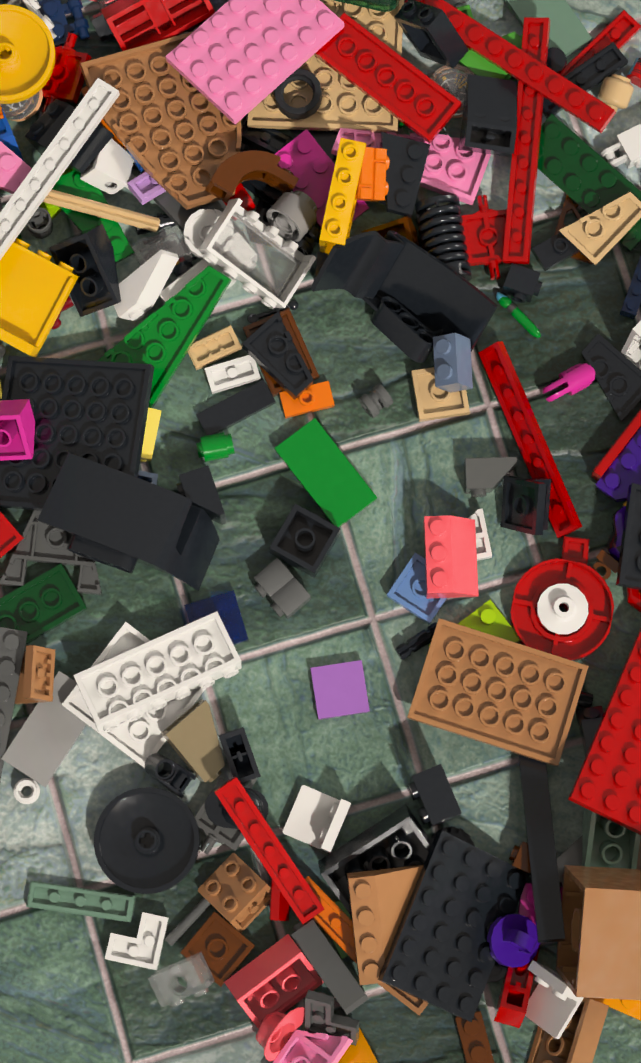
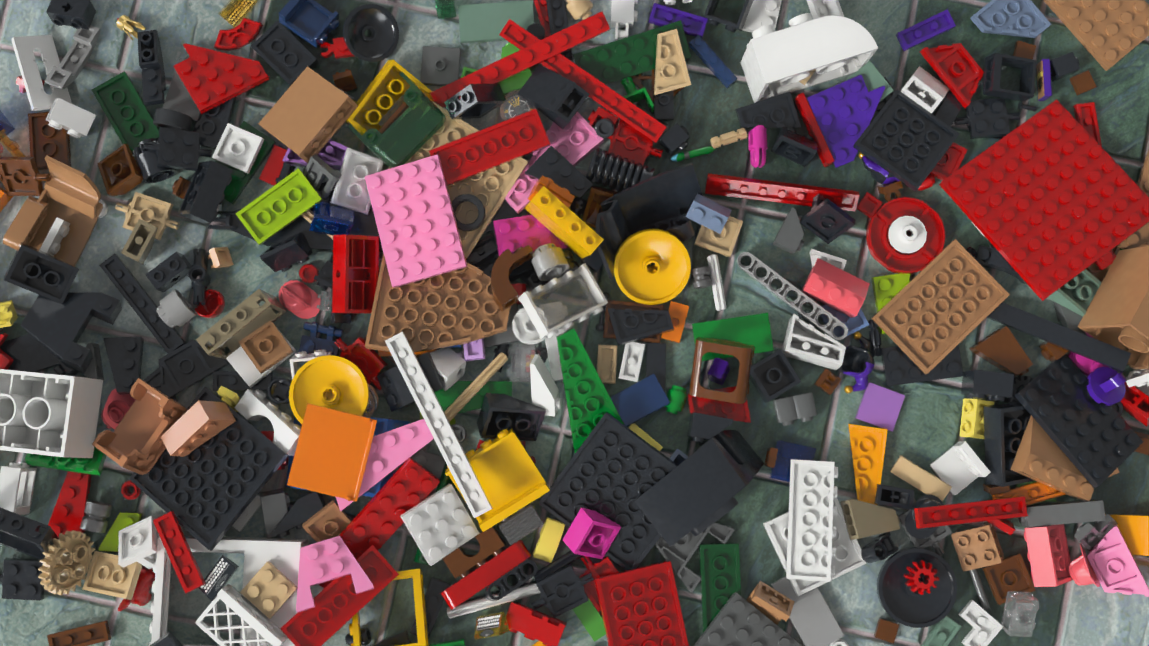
camera: 60 degrees left, 5 degrees up
(77, 836) = (886, 630): none -> reddish brown tile
(151, 835) = (917, 585): none -> red gear
(191, 405) = (640, 400): none -> dark blue piece
(208, 591) = (771, 457): none -> reddish brown tile
(243, 505) = (718, 408): none -> red wing
(269, 707) = (868, 457): none -> light orange wing
(276, 478) = (718, 371): none -> dark purple slope
(280, 780) = (920, 478): none -> tan tile
(304, 486) = (741, 351): none -> reddish brown piece
(314, 873) = (994, 489): none -> reddish brown tile
(333, 339) = (654, 283): none -> yellow dish
(335, 612) = (827, 381): none -> reddish brown tile
(365, 566) = (811, 346): none -> white wedge
(375, 217) = (578, 206): none -> black piece
(376, 634) = (858, 363): none -> black piece
(376, 808) = (973, 418): none -> light yellow bracket
(380, 422) = (717, 287): none -> white axle
(396, 693) = (902, 370): none -> black plate
(412, 525) = (787, 287): none -> light grey beam
(486, 799) = (1003, 352): none -> reddish brown slope
(487, 195) = (605, 127): none -> black tile
(500, 193) = (599, 114): none -> red bracket
(547, 211) = (634, 95): none -> green bracket
(560, 345) = (728, 138): none -> tan axle
(593, 421) = (794, 146): none -> black slope

